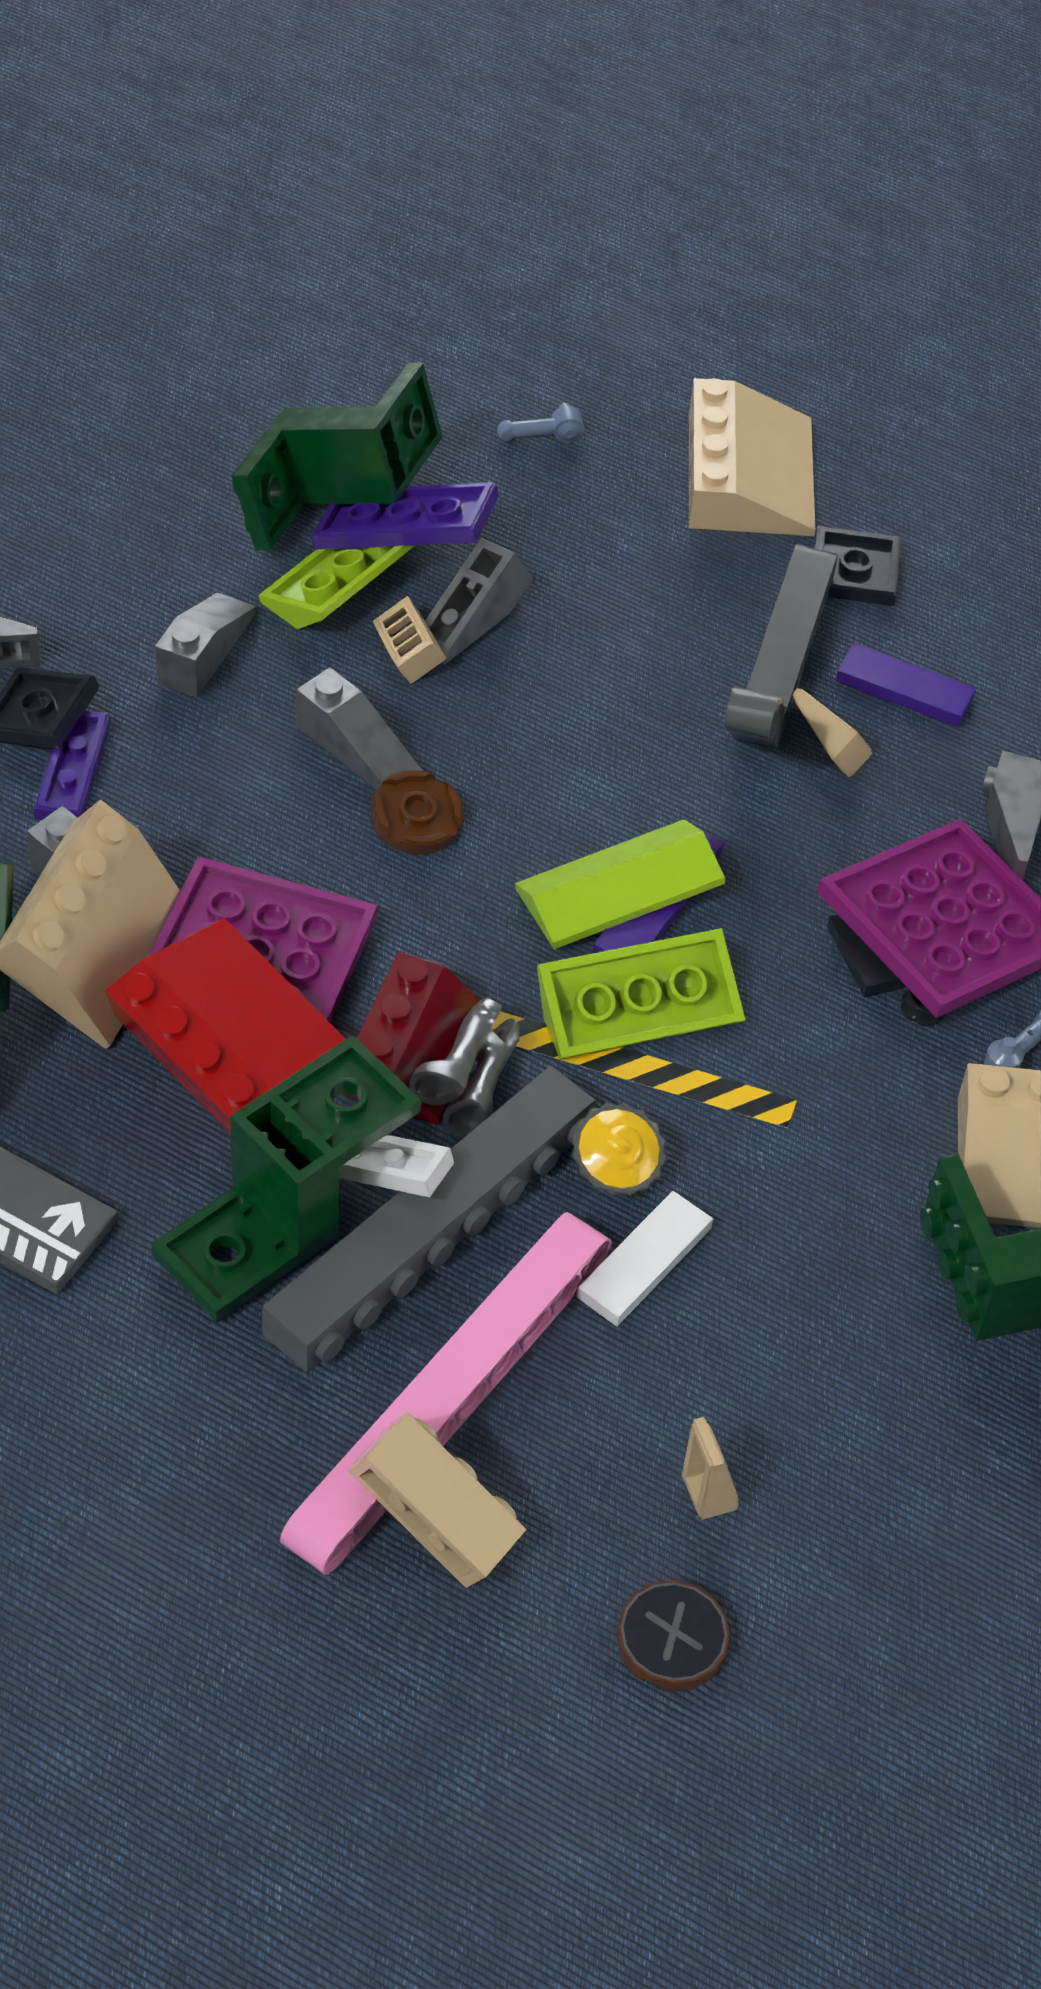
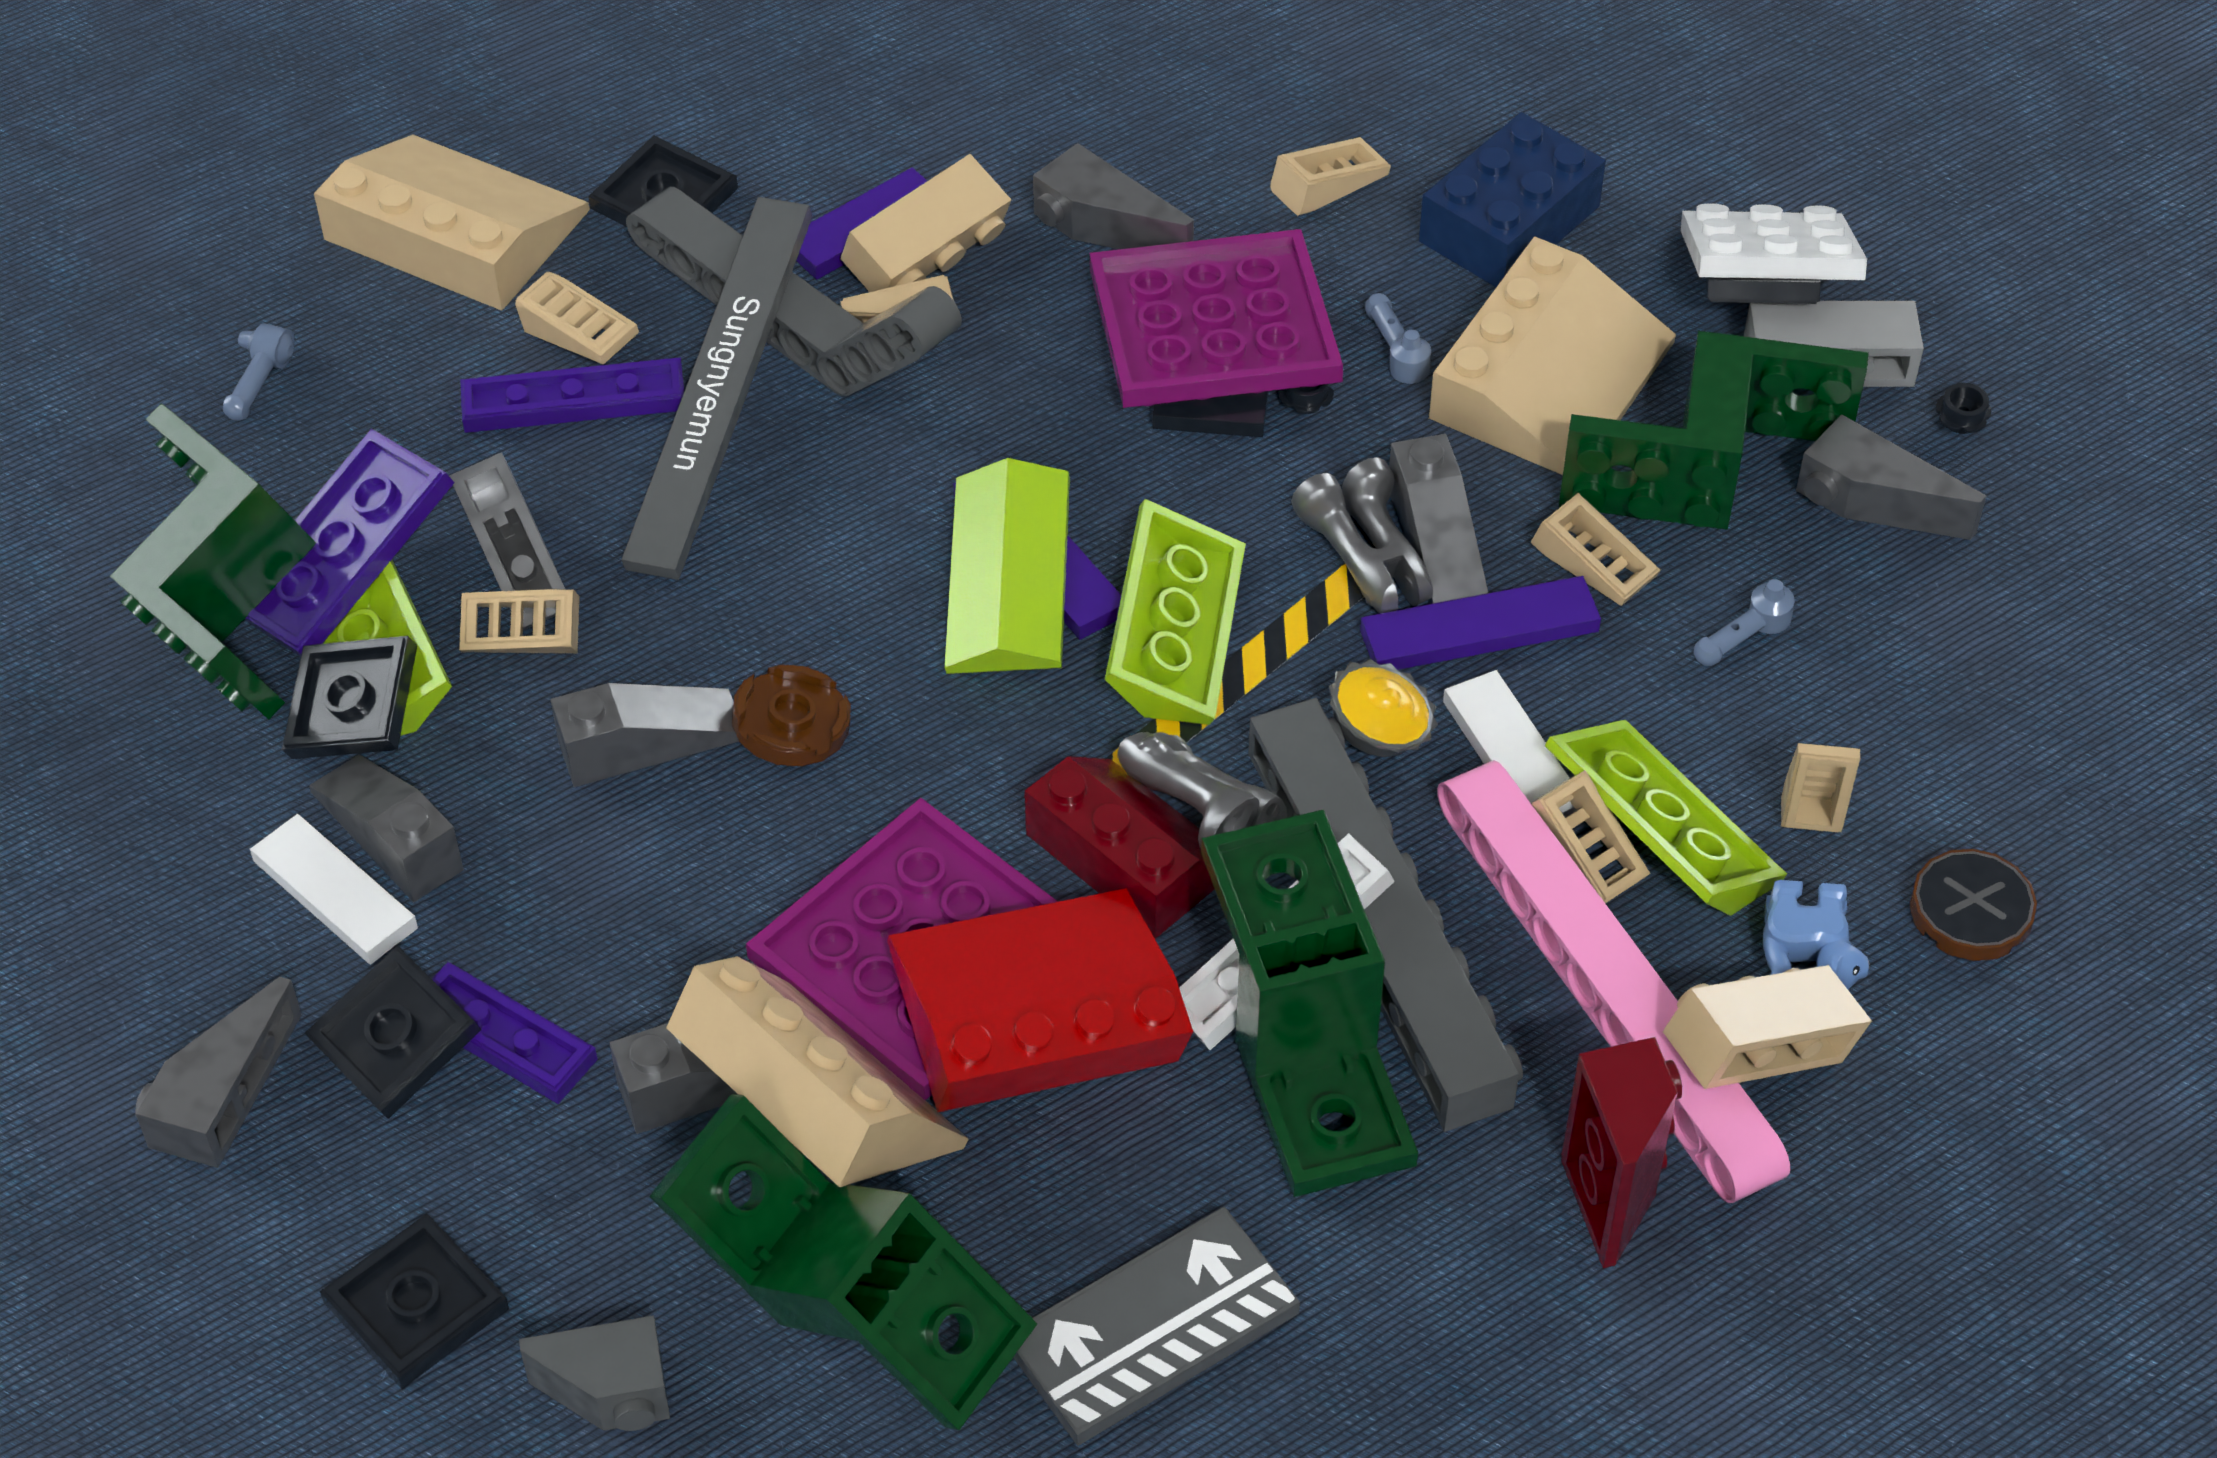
camera: 60 degrees left, 0 degrees up
(133, 646) = (334, 889): none -> white tile
(252, 1423) = (1619, 1138): none -> dark red slope
(288, 576) = (350, 697): none -> black tile
(559, 1324) = (1605, 827): none -> tan slope
(570, 1521) = (1811, 932): none -> medium blue animal
(631, 1379) = (1669, 814): none -> lime slope
(634, 592) = (571, 395): none -> dark purple tile
(675, 652) = (717, 389): none -> dark grey tile
(694, 557) = (557, 307): none -> tan slope
(759, 1197) = (1481, 624): none -> dark purple tile
(803, 1052) = (1365, 496): none -> flat silver piece
(836, 1129) = (1437, 516): none -> flat silver slope
(894, 1215) = (1593, 528): none -> tan slope
(898, 1390) = (1768, 612): none -> sand blue piece
(912, 714) = (928, 227): none -> tan brick

